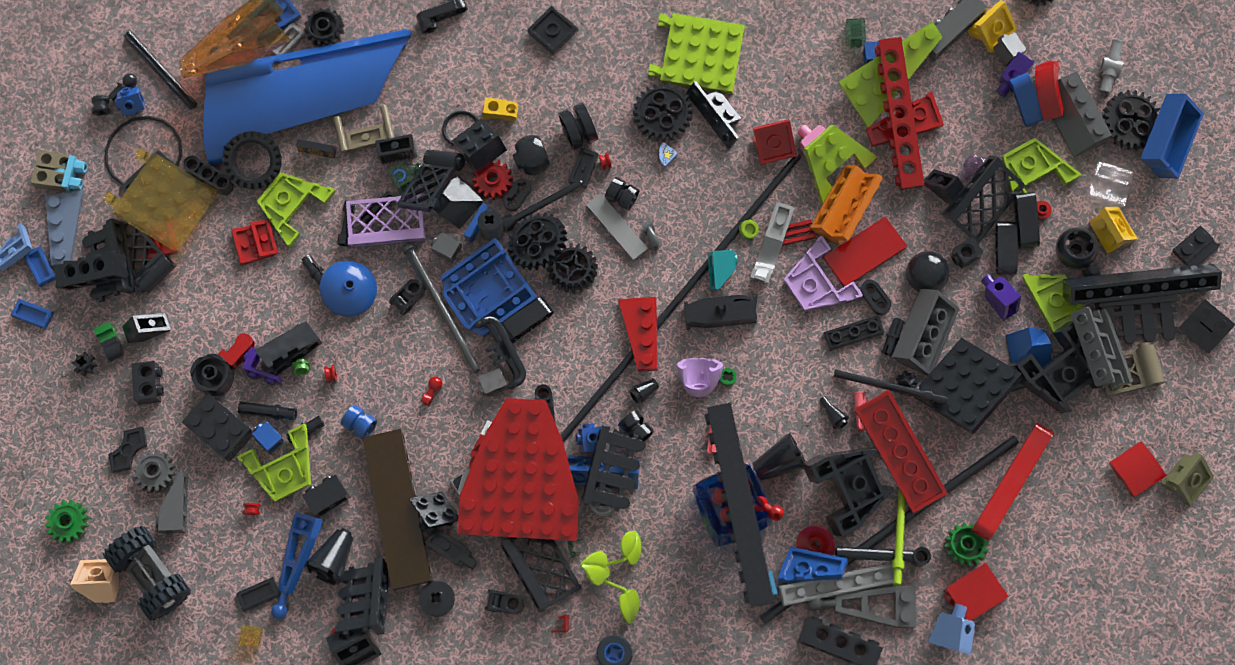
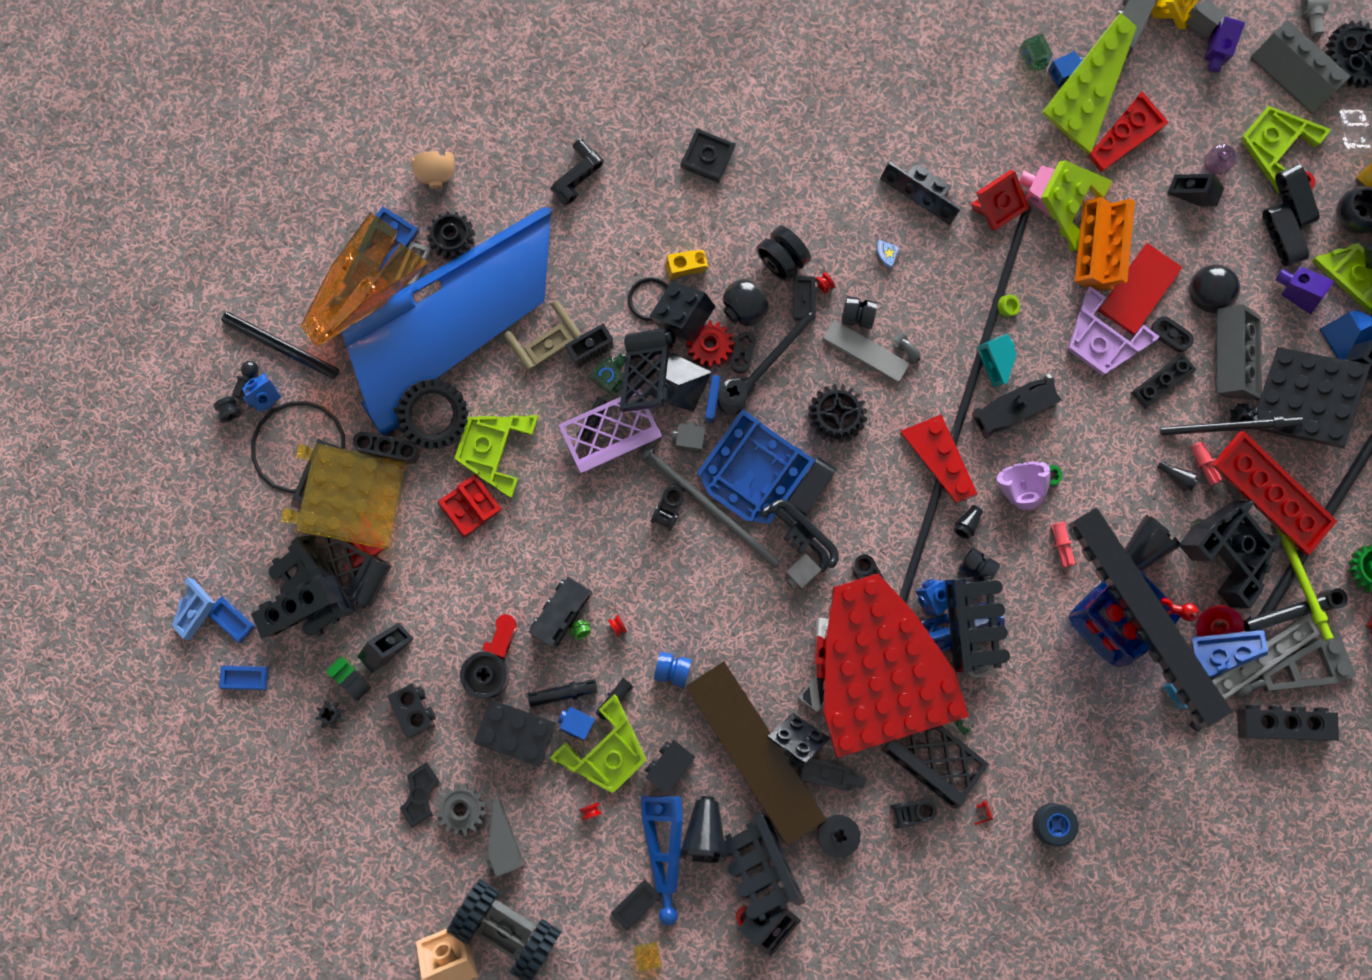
camera: 30 degrees left, 5 degrees up
(57, 172) = (208, 503): dark tan hips -> none
(62, 220) = (238, 562): sand blue wing -> none
(74, 528) = (371, 907): green gear -> none
(250, 363) = (520, 642): dark purple bracket -> none
(315, 271) = (554, 516): black pin -> none
(316, 148) = (497, 376): black tile -> none
(343, 237) = (569, 466): black bar -> none
(347, 300) = (588, 532): blue dish -> none
(434, 385) = (738, 597): red arm -> none
(537, 241) = (806, 403): black gear -> none
(597, 571) = (1009, 740): lime plant -> none
(654, 125) = (867, 189): black gear -> none
(700, 52) = (878, 128): lime plate -> none
(772, 242) = (1041, 311): light grey piece -> none
(802, 238) = (1072, 283): red tile -> none
(892, 336) = (1207, 370): black axle -> none
(894, 47) = (1126, 113): red brick -> none
(971, 247) = (1253, 248): black brick -> none
(975, 186) = (1235, 183): black fence -> none
(1026, 99) = (1248, 66): blue beam -> none
(1048, 89) = (1268, 48): red arch -> none

